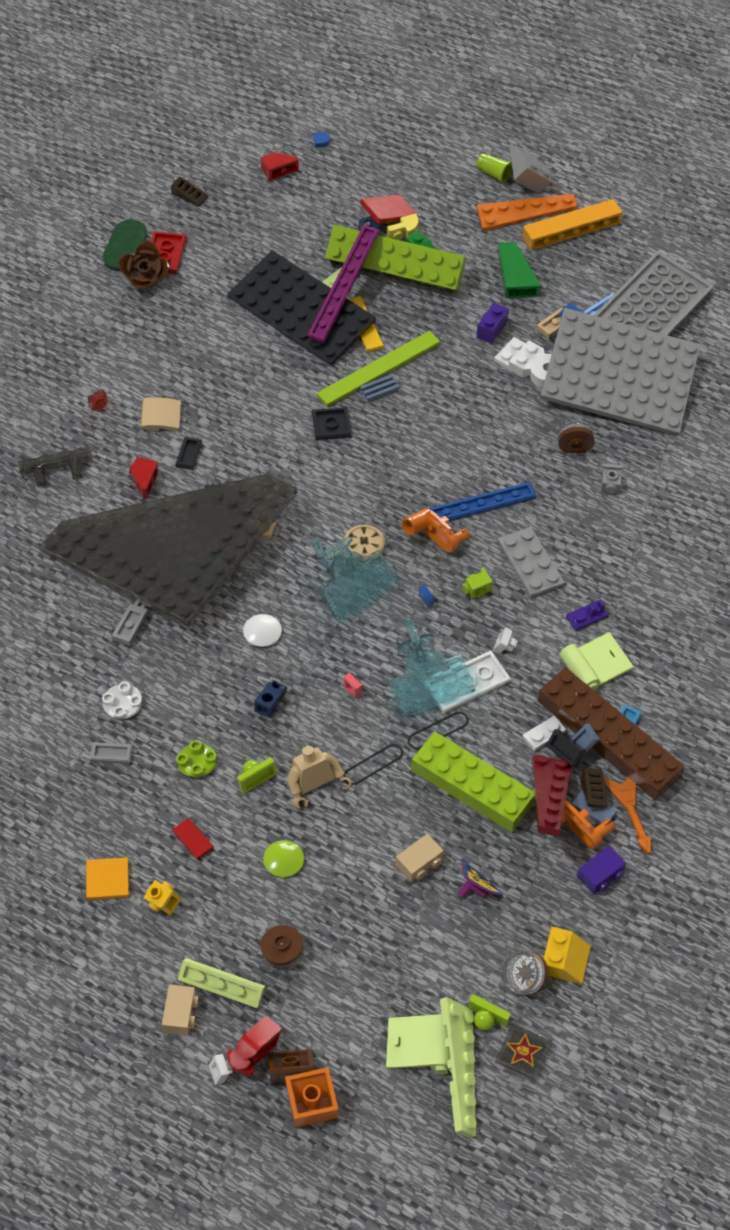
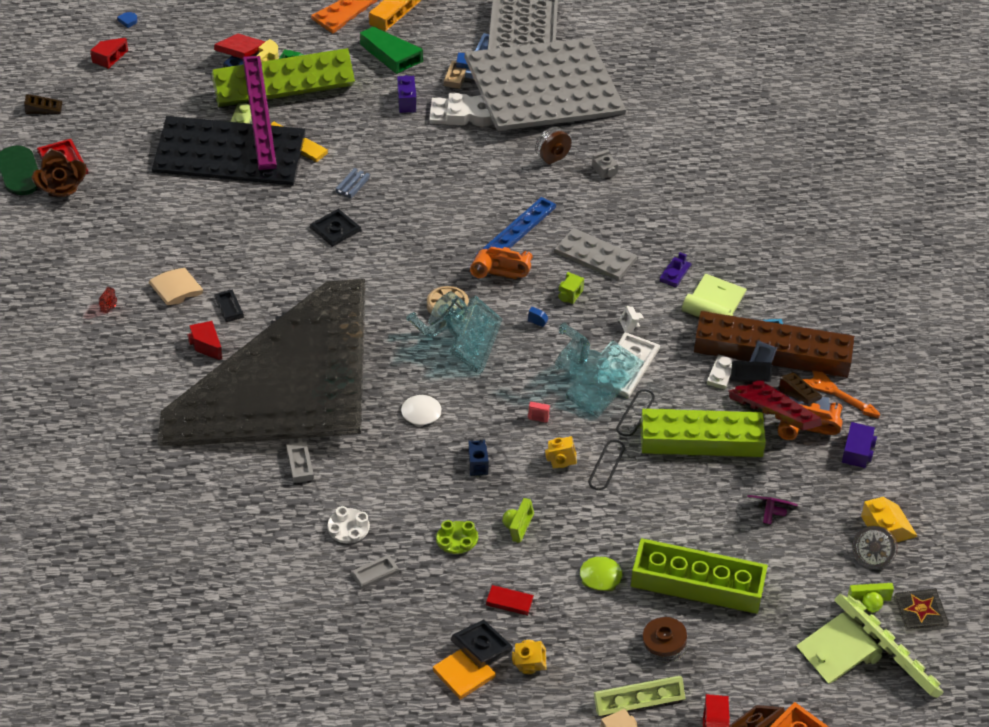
camera: 35 degrees left, 10 degrees down
(62, 459) = (99, 375): clear smoke plate -> none
(138, 863) = (481, 643): none -> black tile
(311, 771) = (567, 492): tan torso -> none
(338, 733) = (561, 452): none -> yellow brick
(355, 909) = (699, 575): none -> lime brick
(378, 368) = (337, 170): lime tile -> none
(419, 858) = (712, 511): tan brick -> none

